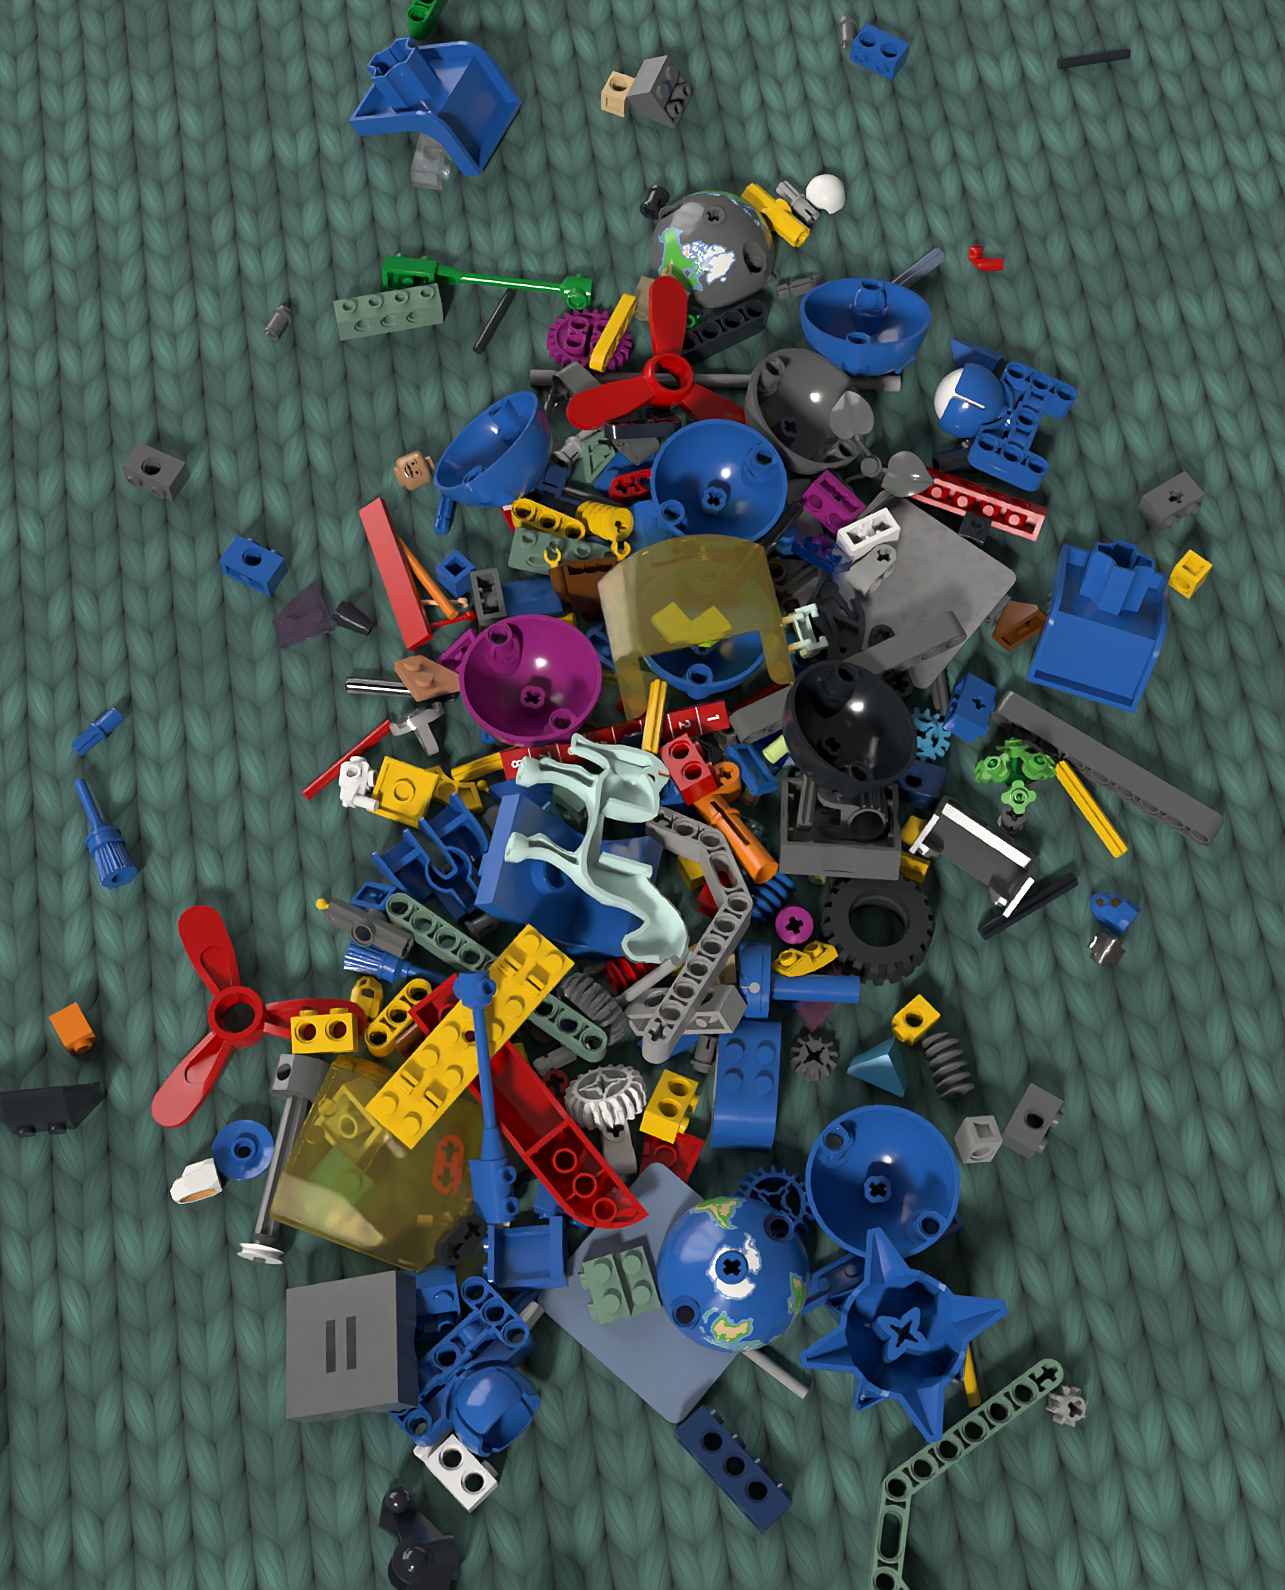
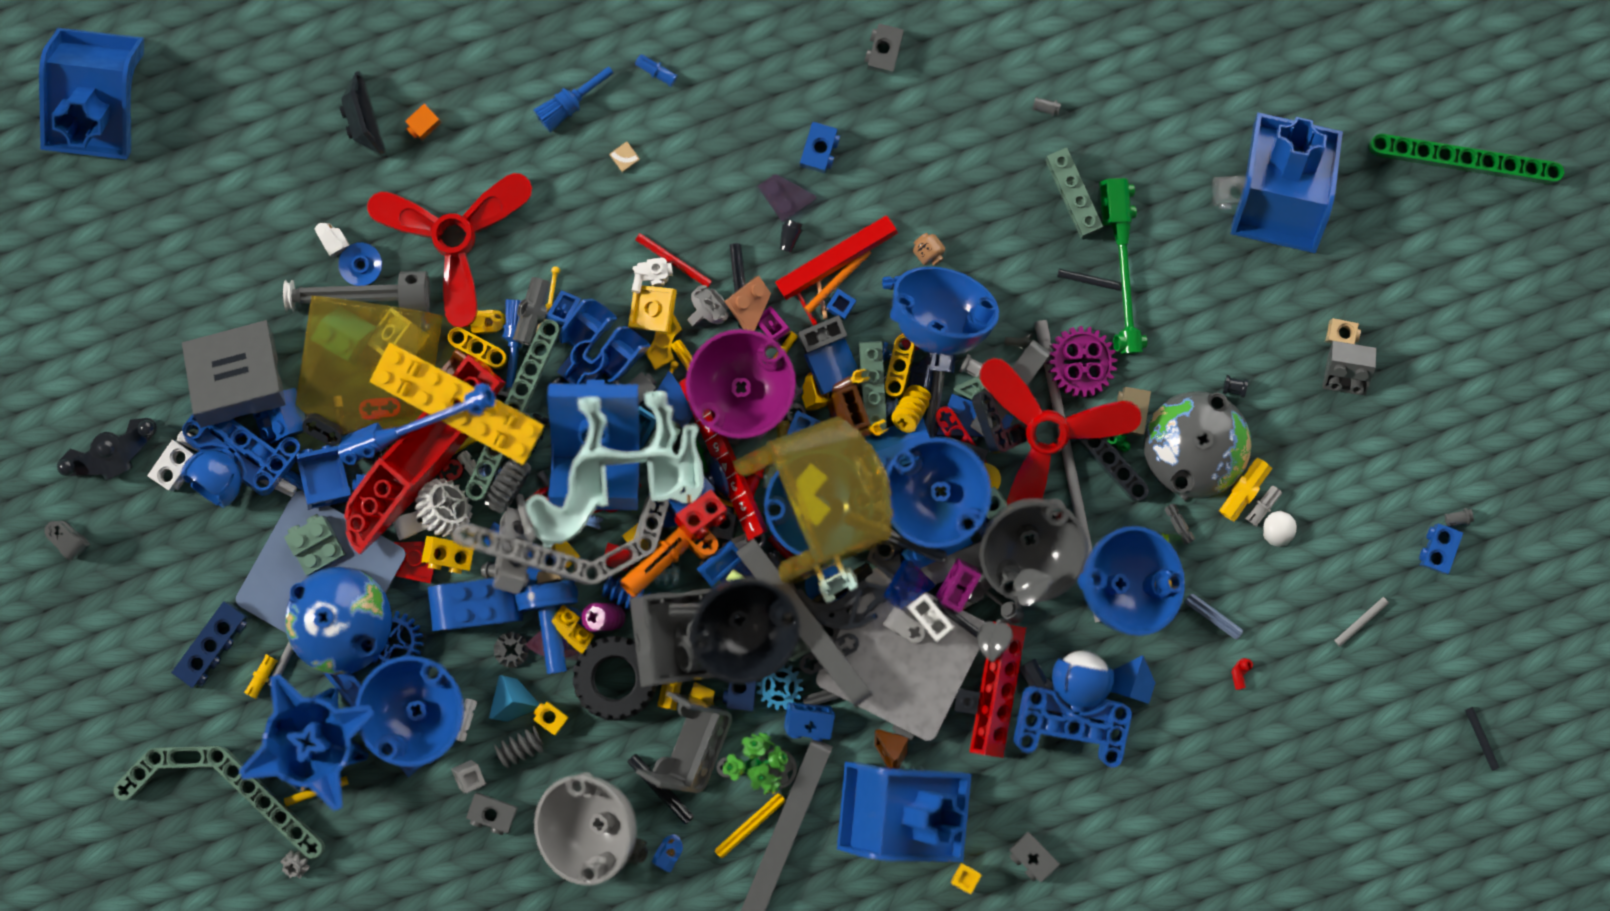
camera: 85 degrees right, 20 degrees up
(197, 791) = (624, 157): none -> tan tile
(324, 1040) = (441, 302): yellow brick -> none
(613, 332) = (1084, 380): yellow beam -> none
(654, 716) = (737, 482): yellow axle -> none
(791, 1404) = (261, 676): none -> yellow pin
(945, 140) = (1365, 618): none -> light grey bar
(1085, 1014) = (585, 828): none -> light grey piece

